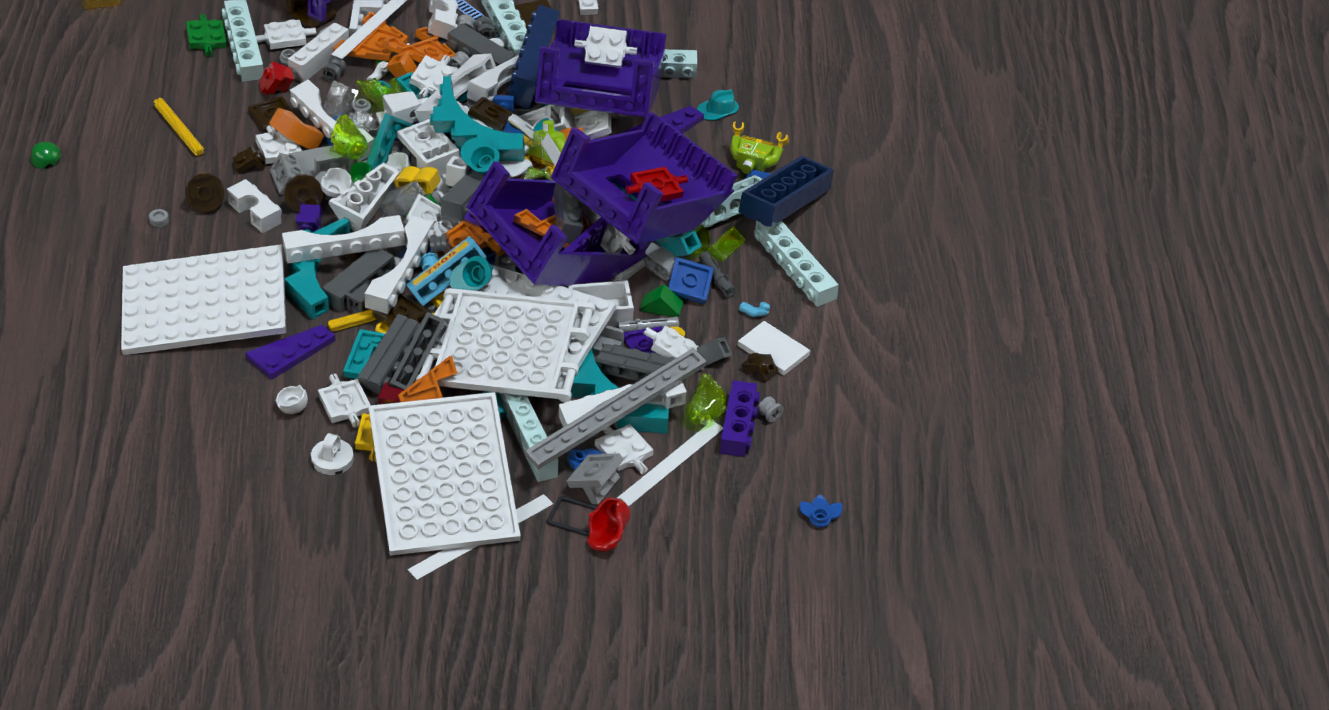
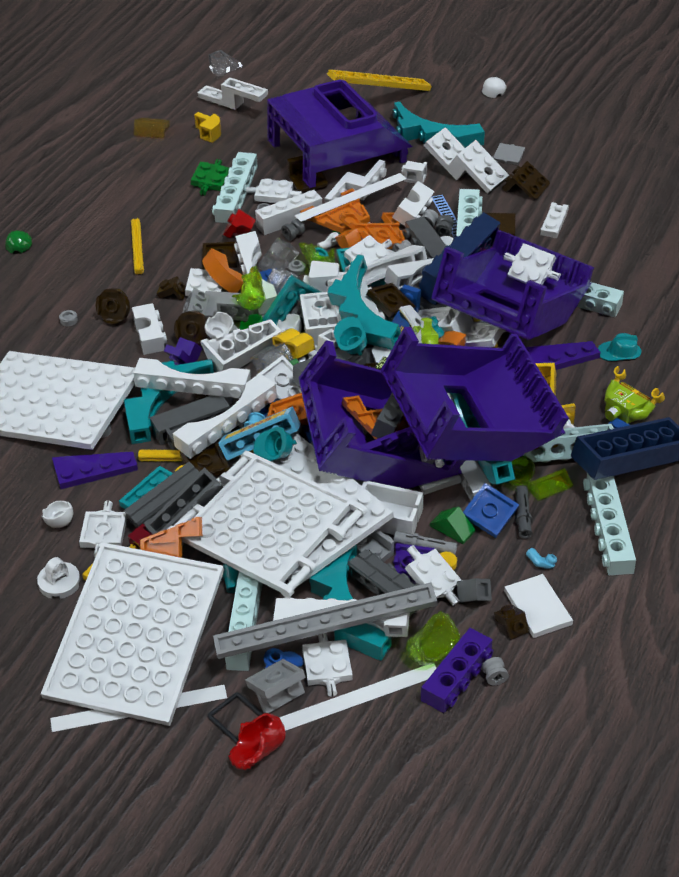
camera: 30 degrees right, 0 degrees up
(439, 243) = (270, 405): dark grey wheel -> none
(661, 179) = (486, 406): red plate -> none
(820, 511) = (486, 801): blue plate -> none

